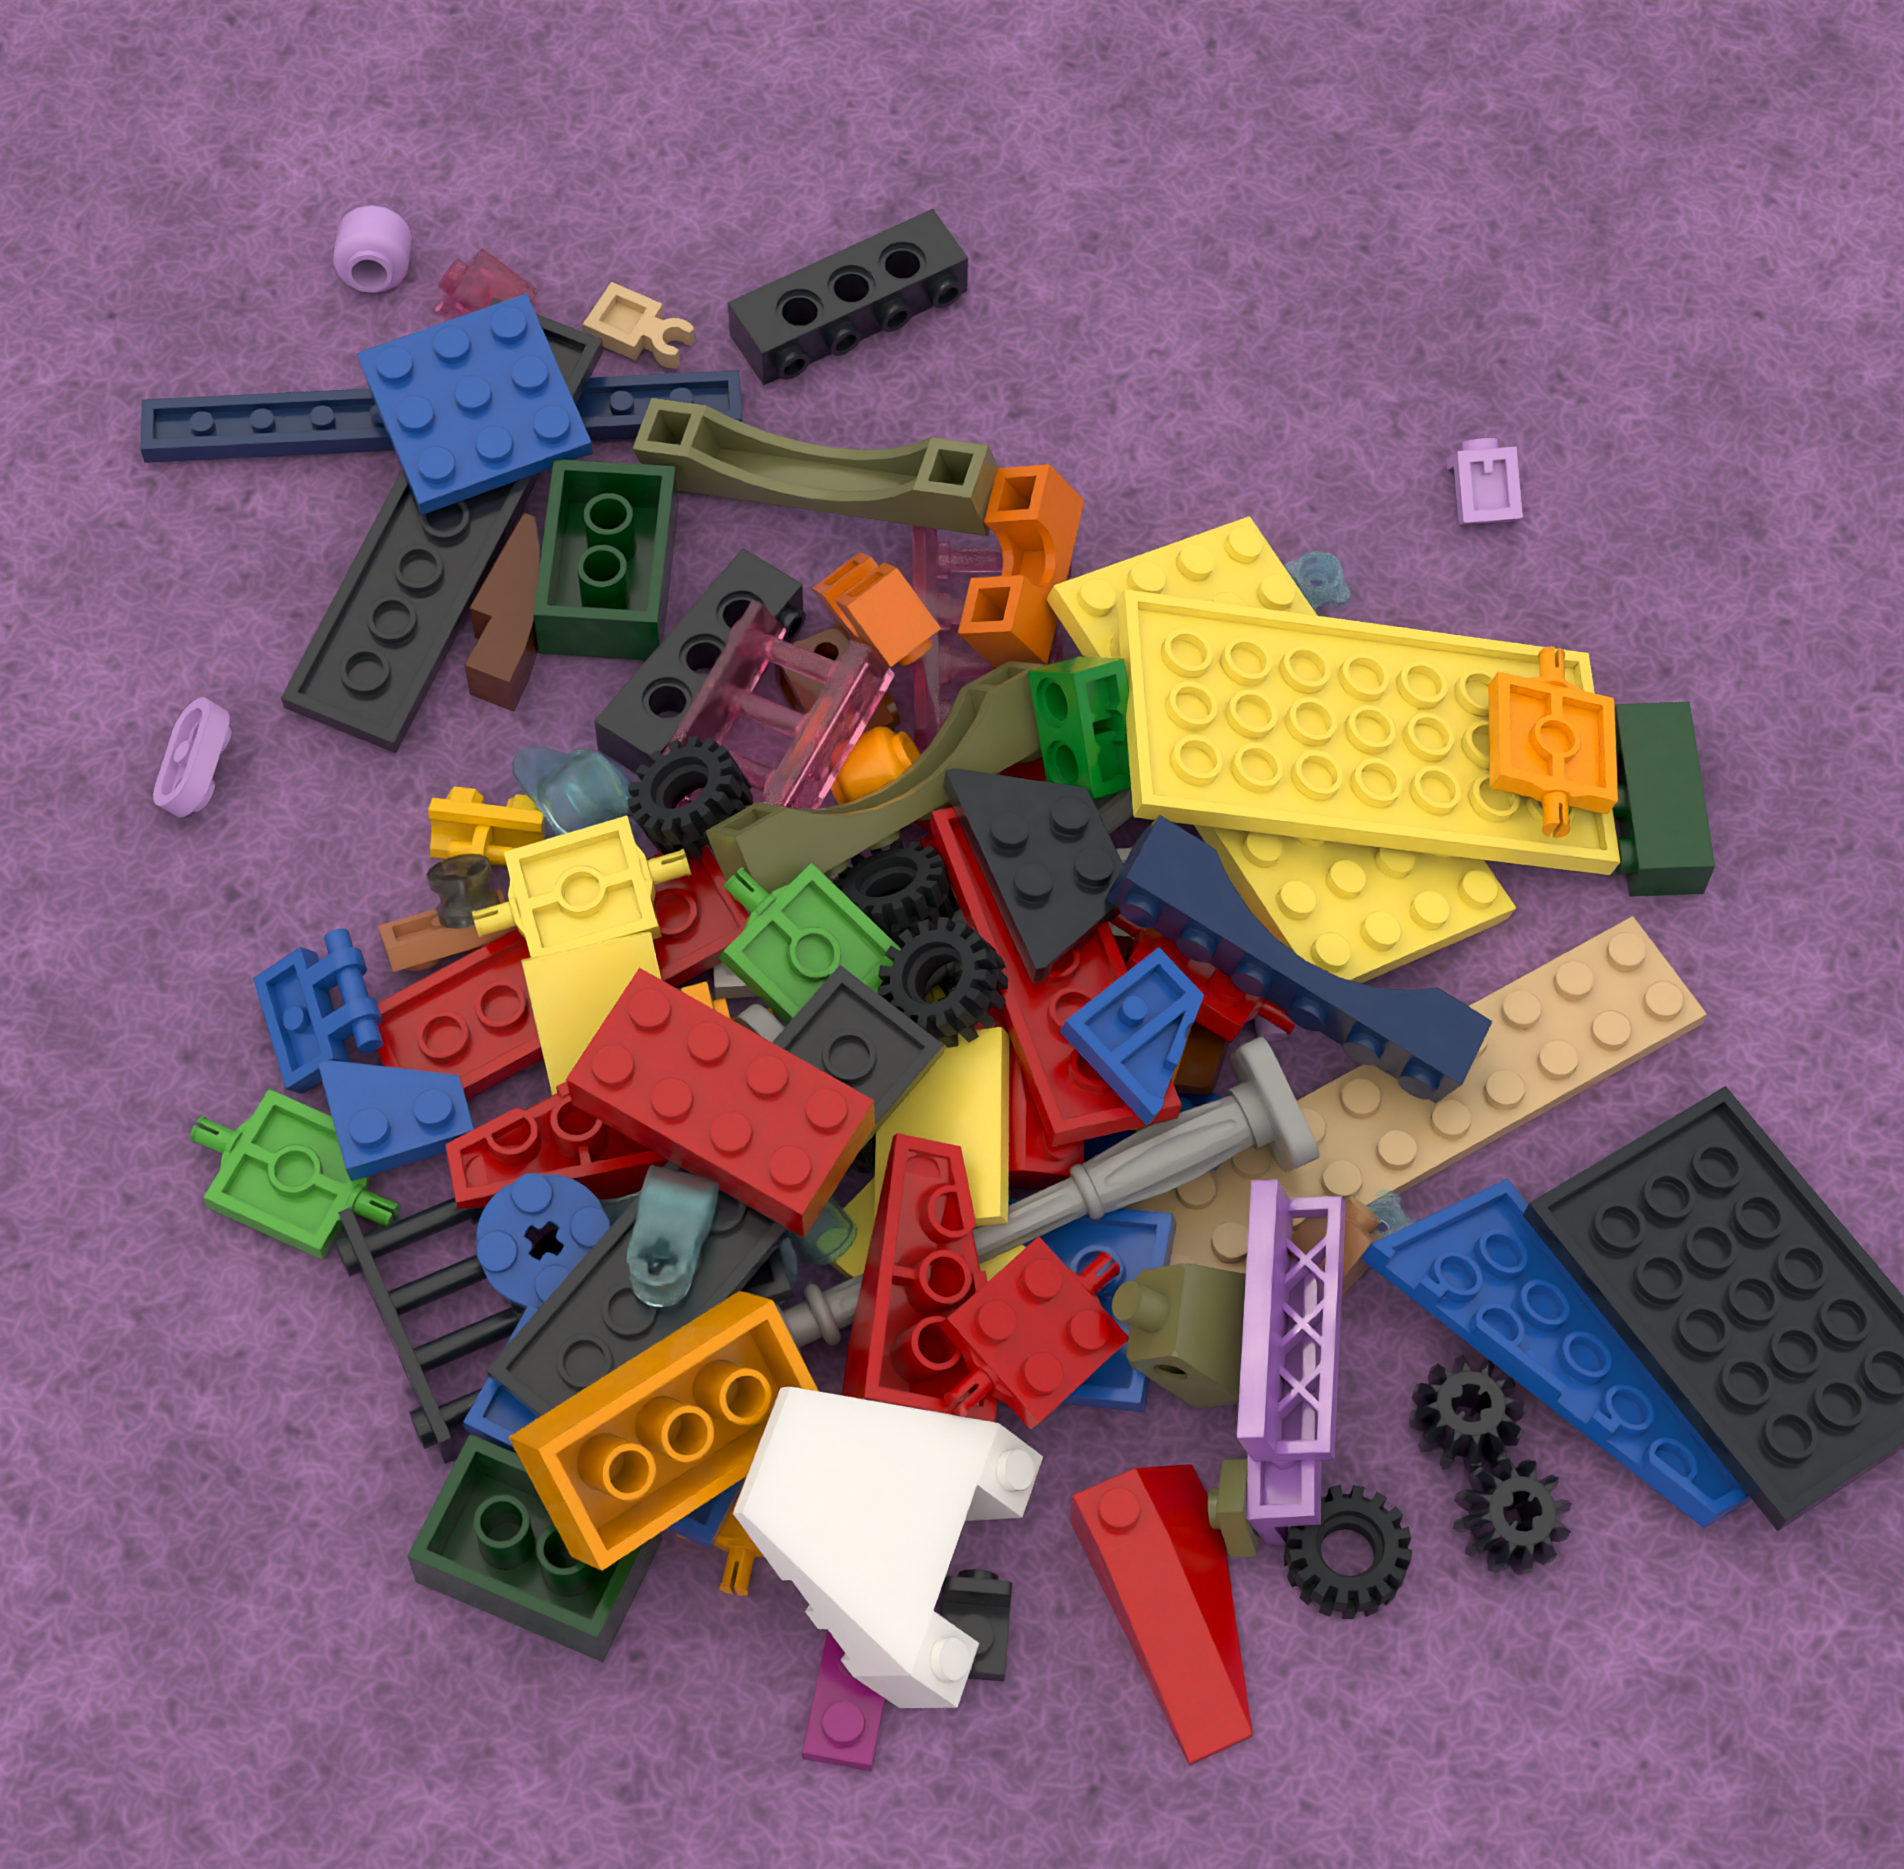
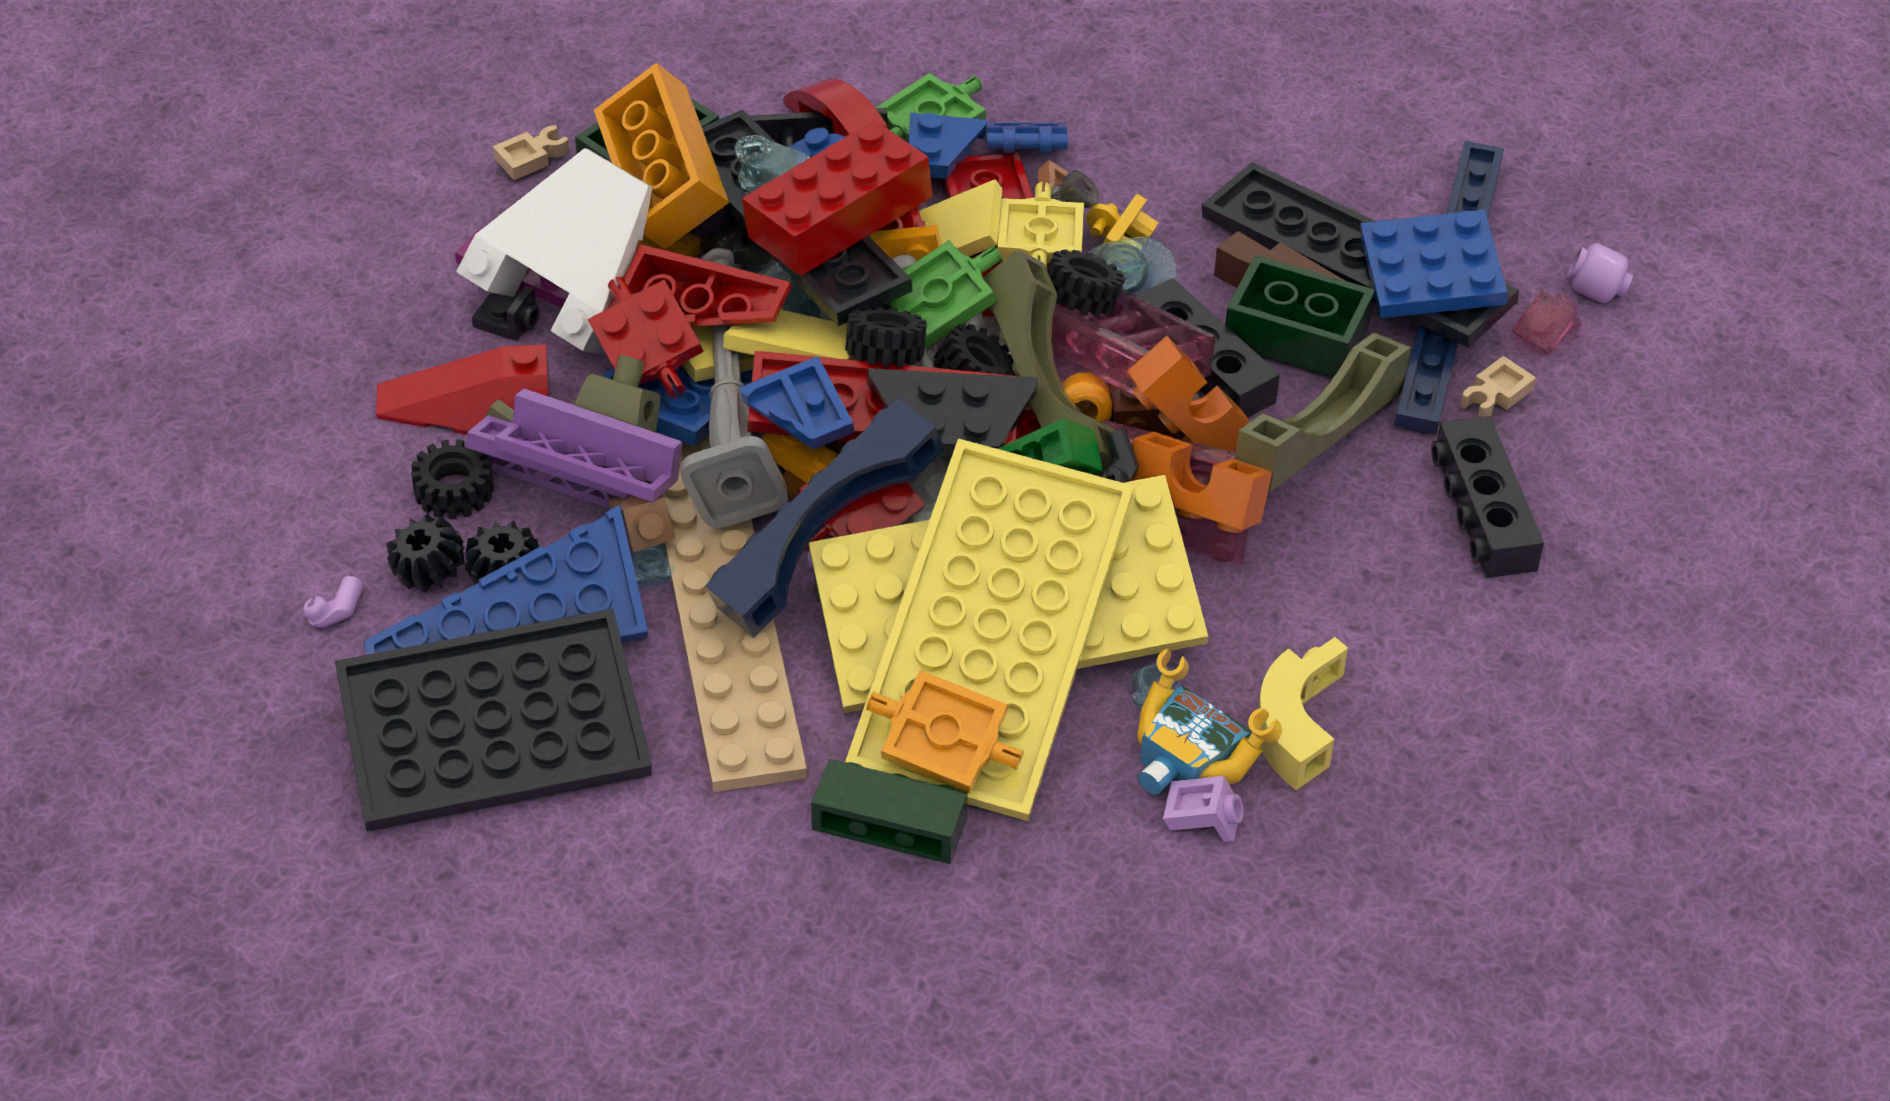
camera: 110 degrees right, 15 degrees down
(192, 757) = (1242, 132): lavender plate -> none
(363, 1285) = (837, 101): none -> red slope
(596, 1757) = (528, 154): none -> tan plate
(1048, 643) = (1124, 461): none -> black arm
(1298, 435) = (1289, 683): none -> light yellow arch
(1400, 505) = (1192, 738): none -> torso
(1642, 1610) = (323, 613): none -> lavender arm

